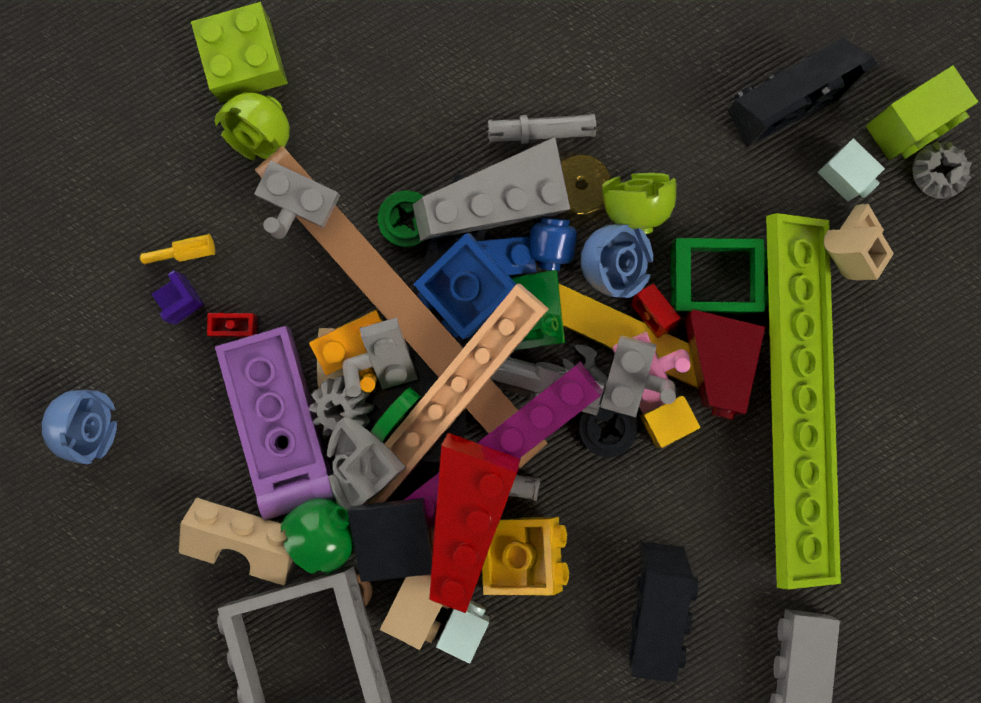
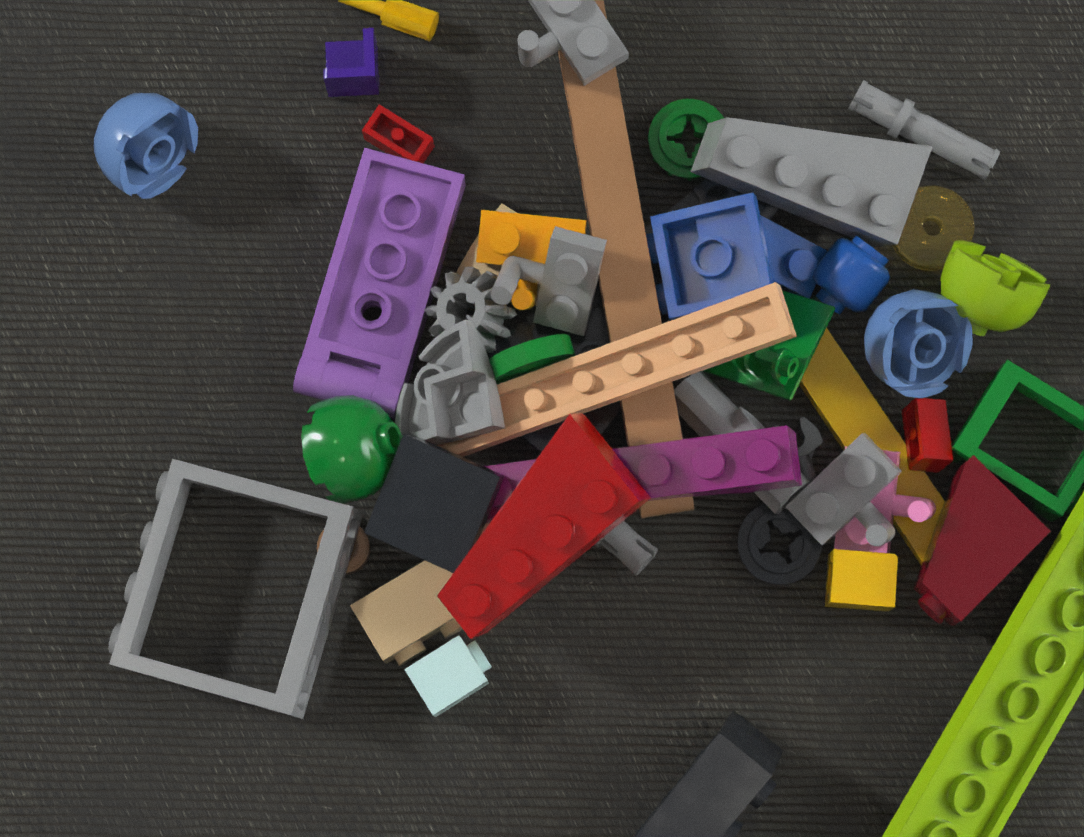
camera: 30 degrees right, 5 degrees down
(215, 527) = (225, 359): tan arch -> none
(526, 558) = (579, 633): yellow plate -> none

